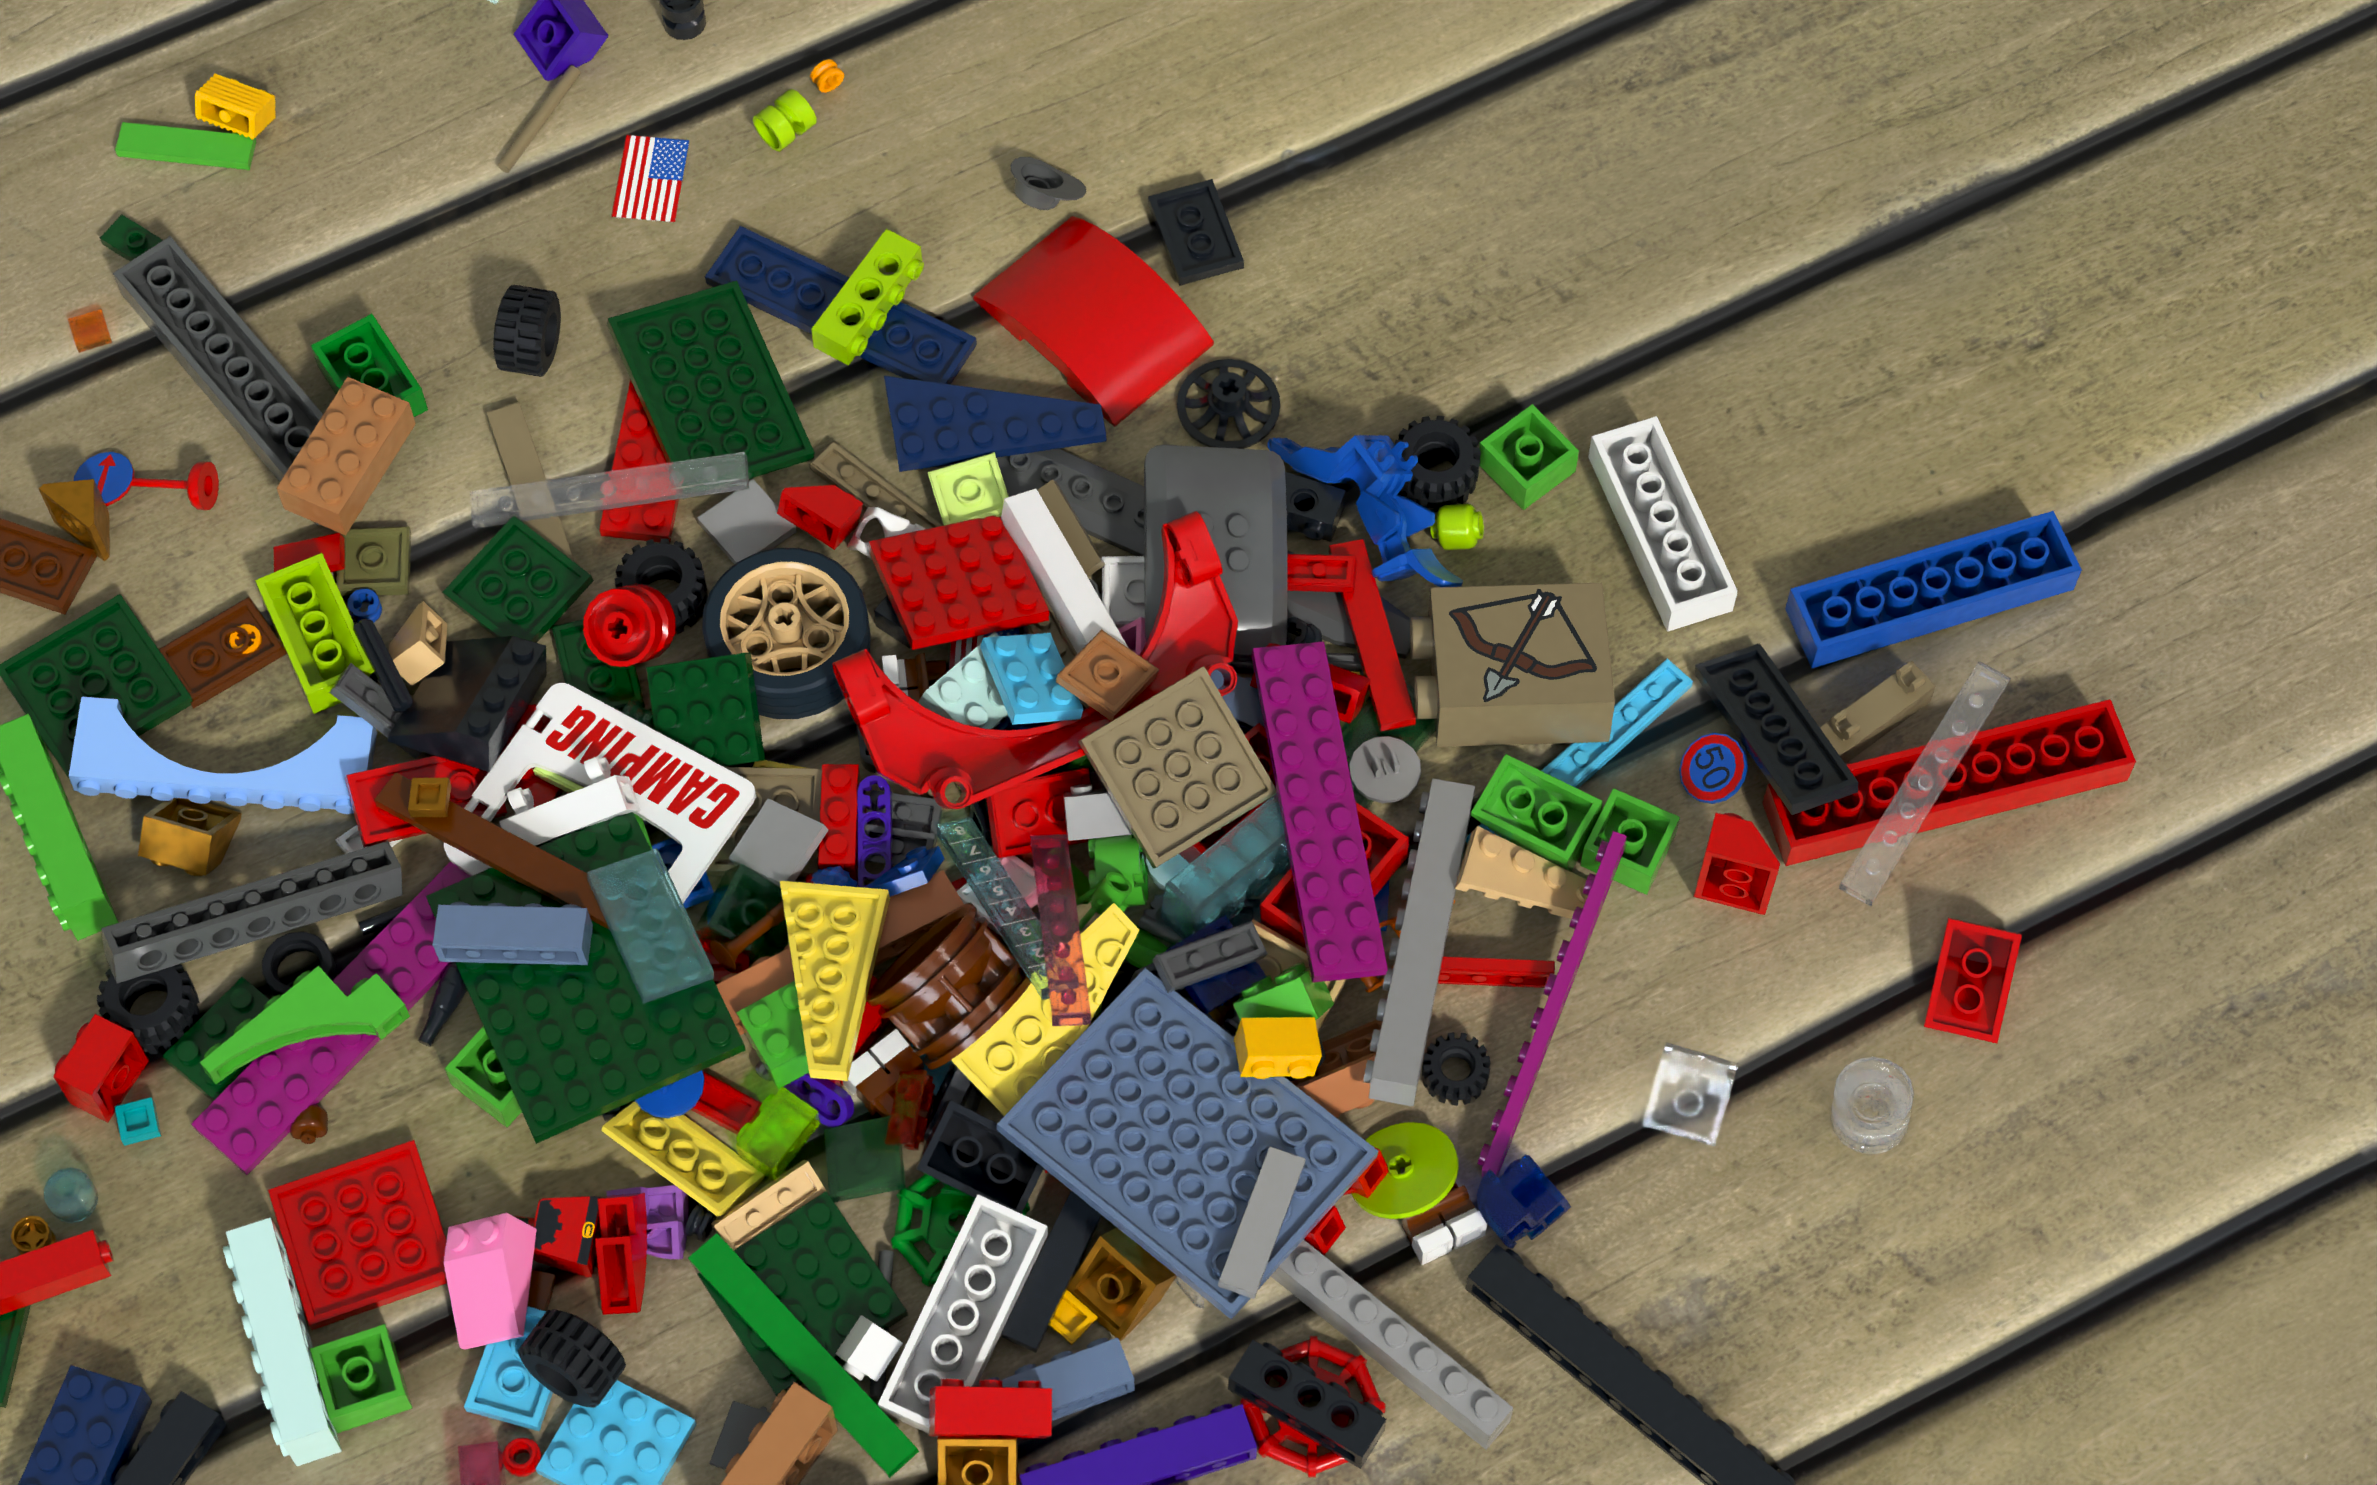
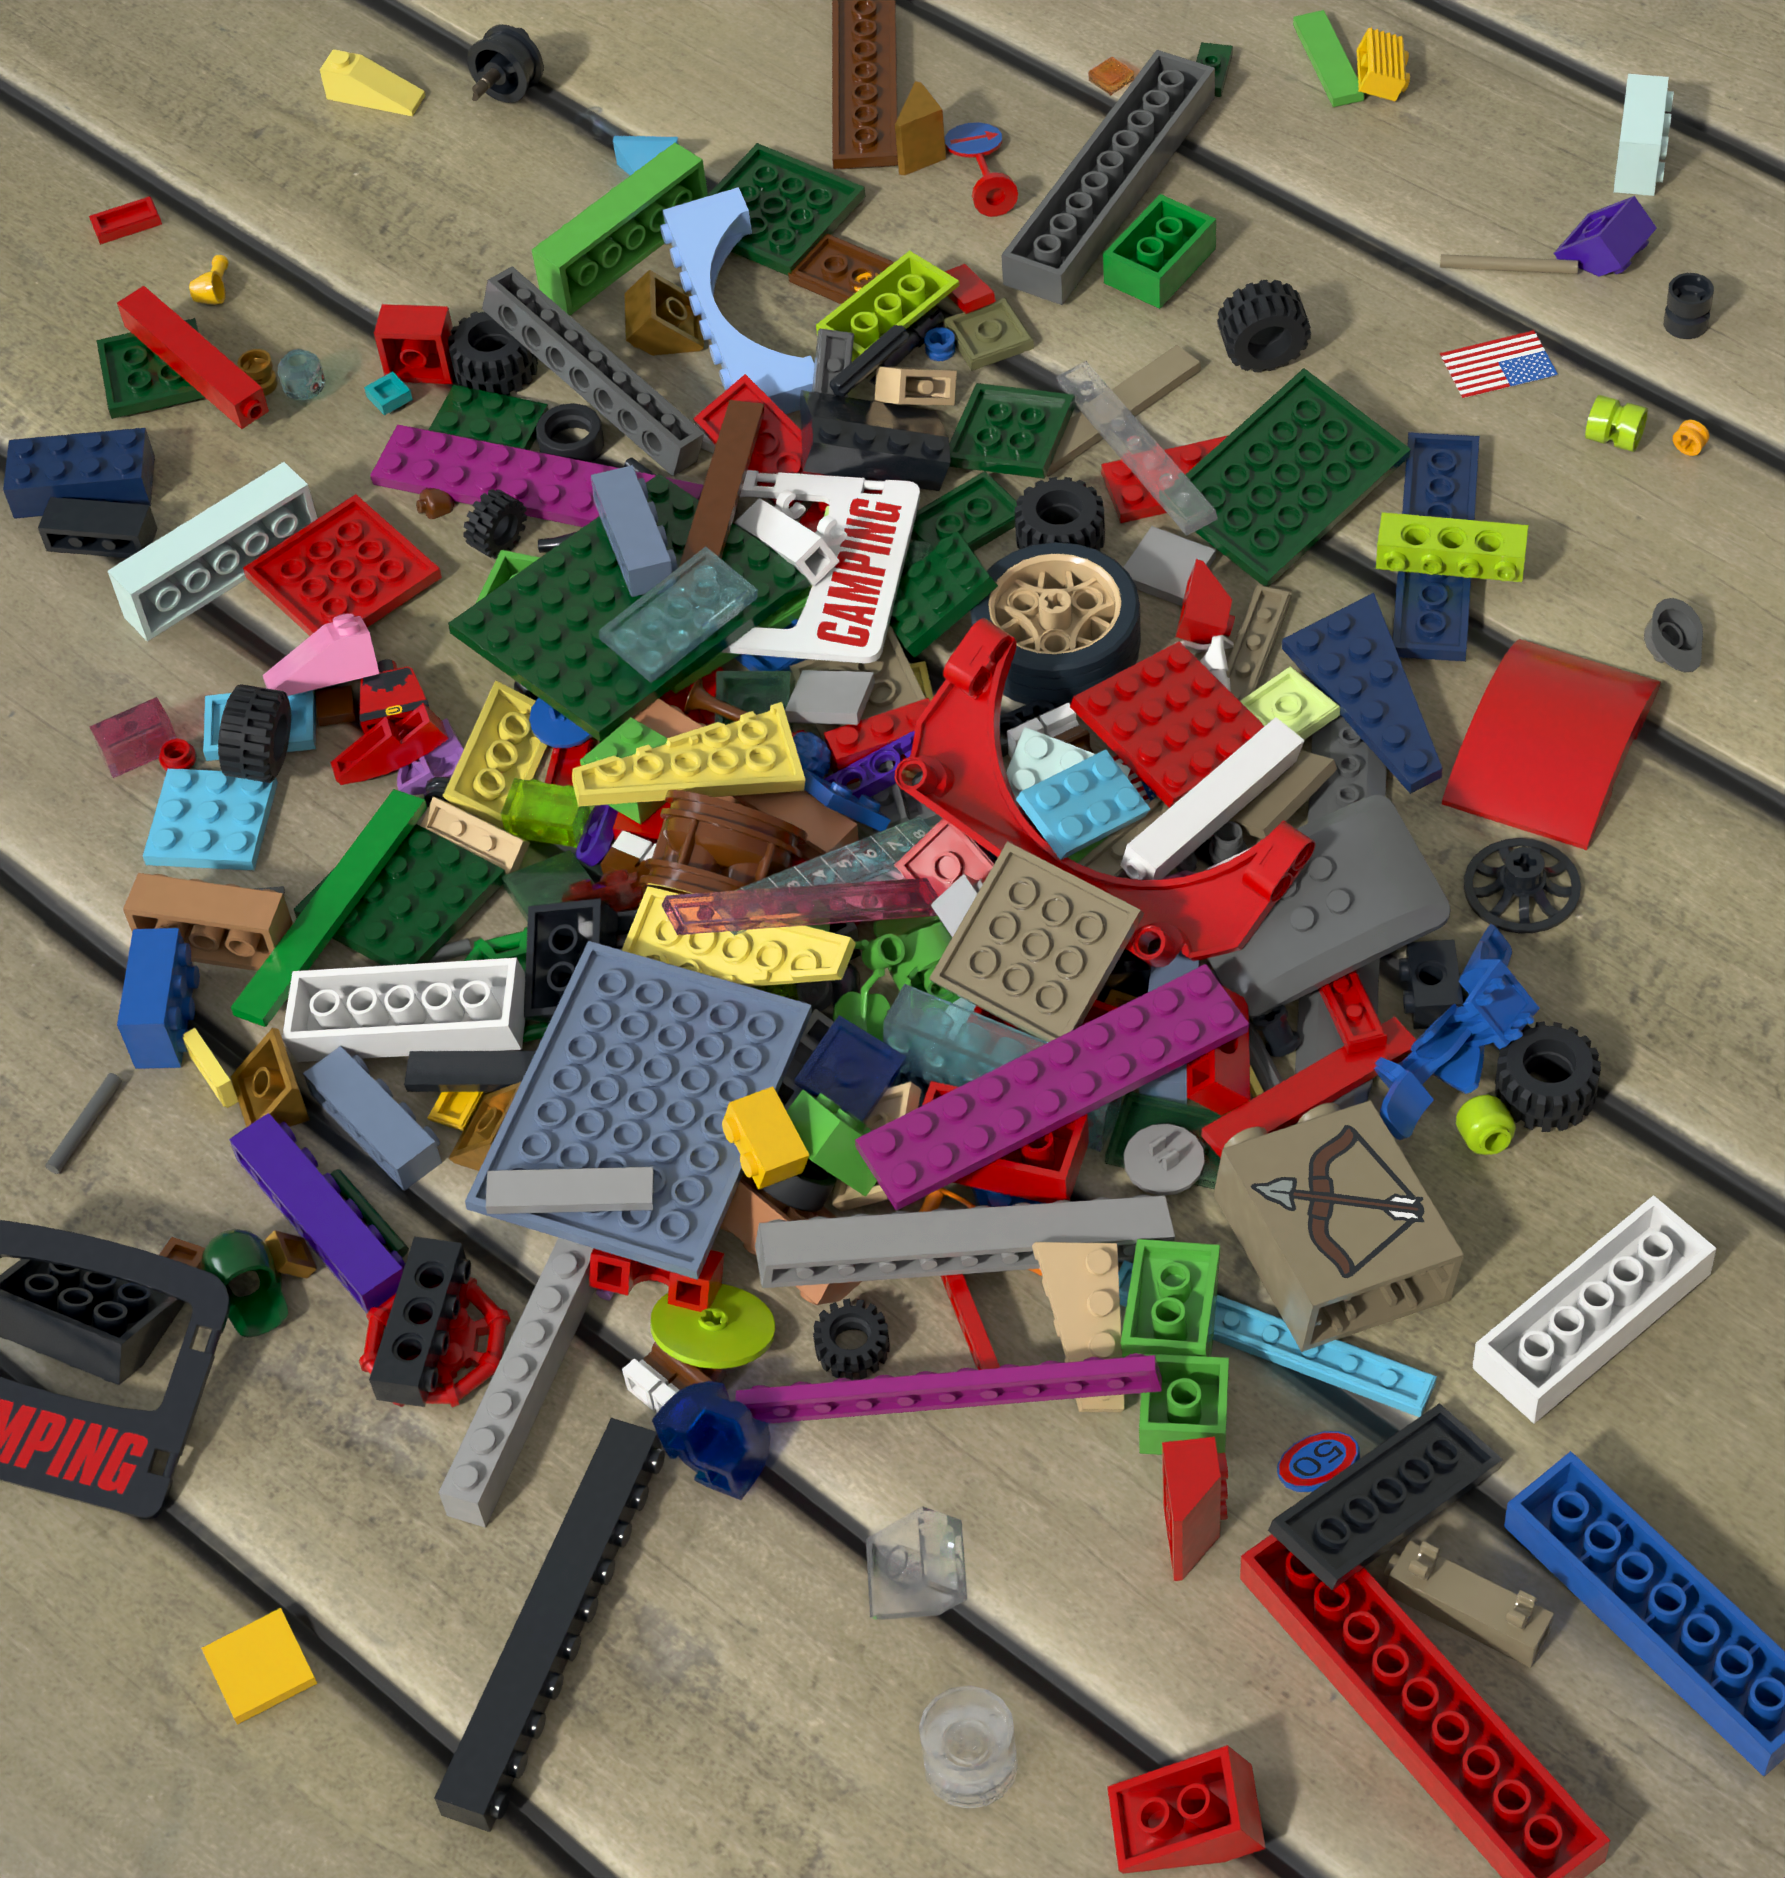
camera: 75 degrees right, 10 degrees down
(308, 1012) = (517, 441): bright green arch -> none
(346, 455) = (1053, 249): medium nougat brick -> none
(361, 1378) = (203, 616): bright green brick -> none
(391, 1068) = (495, 523): none -> black tyre
(429, 797) = (741, 426): pearl gold plate -> none
(629, 625) = (993, 503): red wheel -> none
(867, 1350) = (352, 950): white brick -> none
(990, 1409) = (310, 1054): red brick -> none
(1107, 675) = (1110, 854): medium nougat tile -> none
(1162, 1421) = (370, 1215): none -> dark green bar
(1195, 232) = (1703, 782): black plate -> none
(1209, 956) = (849, 1055): dark grey tile -> none
(1528, 457) = (1603, 1155): bright green brick -> none
(1924, 783) = (1391, 1665): clear tile -> none

